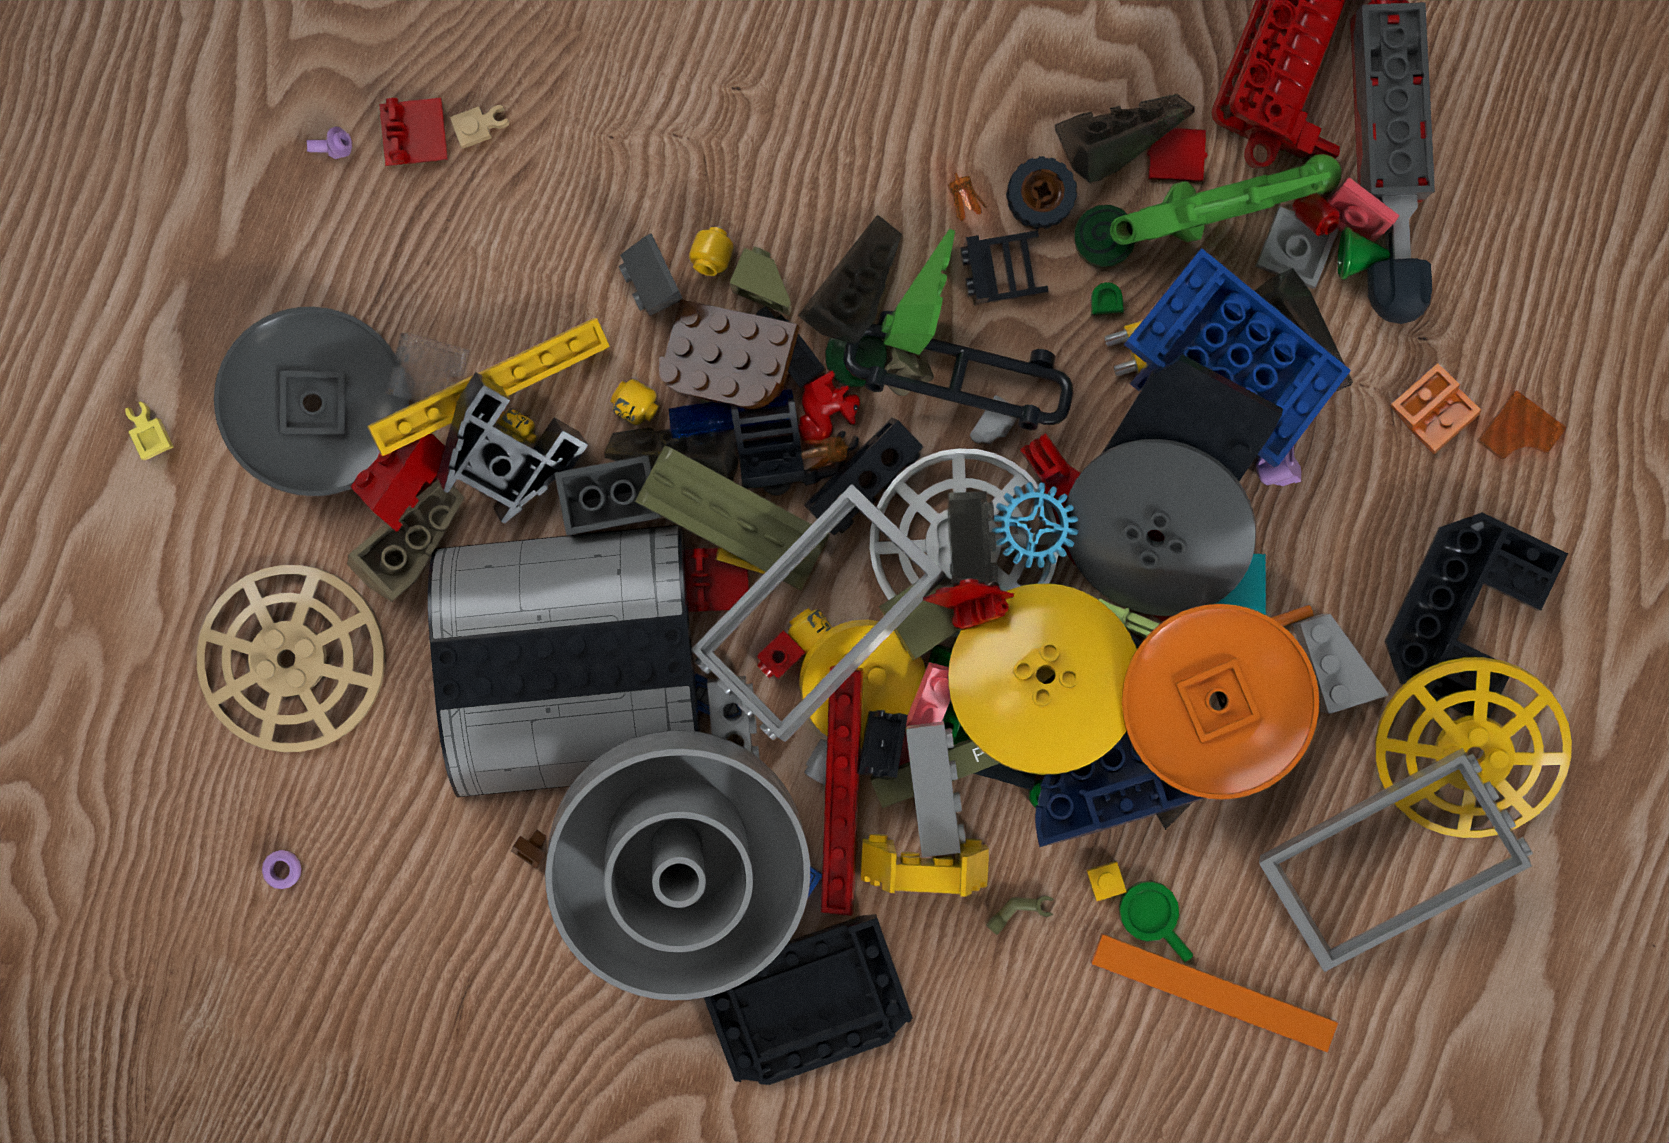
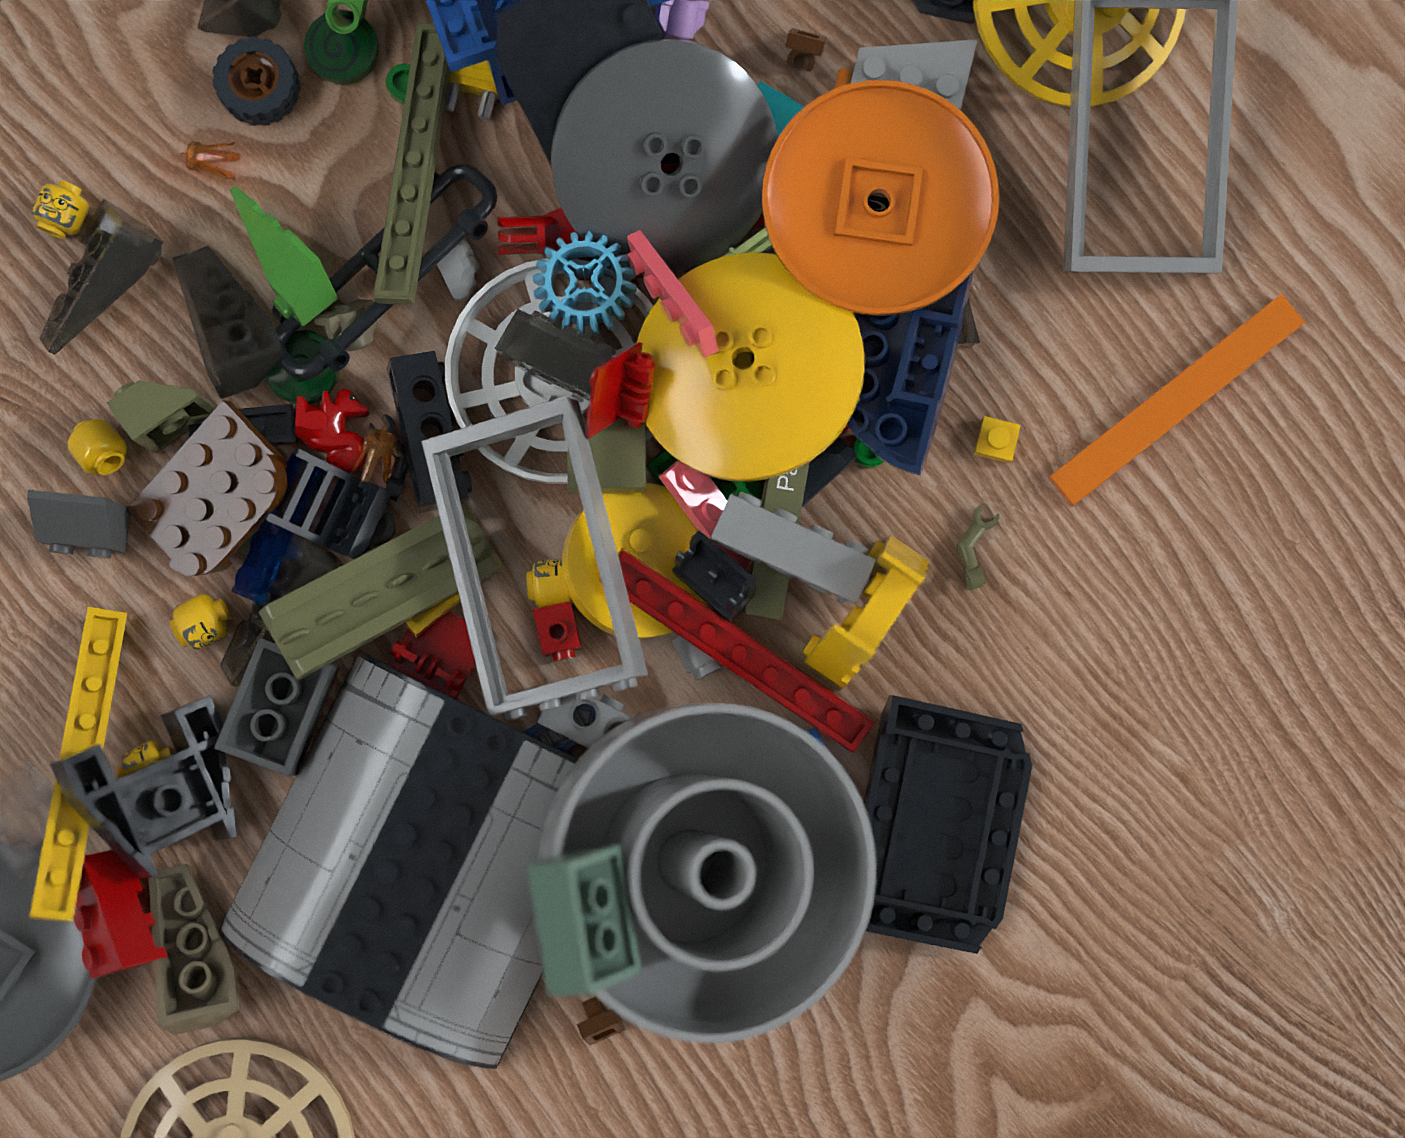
camera: 60 degrees left, 5 degrees down
(592, 810) = (584, 920): none -> sand green slope
(844, 175) = (113, 261): none -> clear smoke wedge
(862, 114) = (60, 209): none -> yellow head
(982, 281) = (297, 189): black plate -> none
(1046, 349) = (413, 170): none -> olive tile
(1058, 602) = (675, 299): none -> coral plate
(1151, 913) = (1058, 414): green piece -> none
(1313, 570) = (804, 43): none -> reddish brown tile

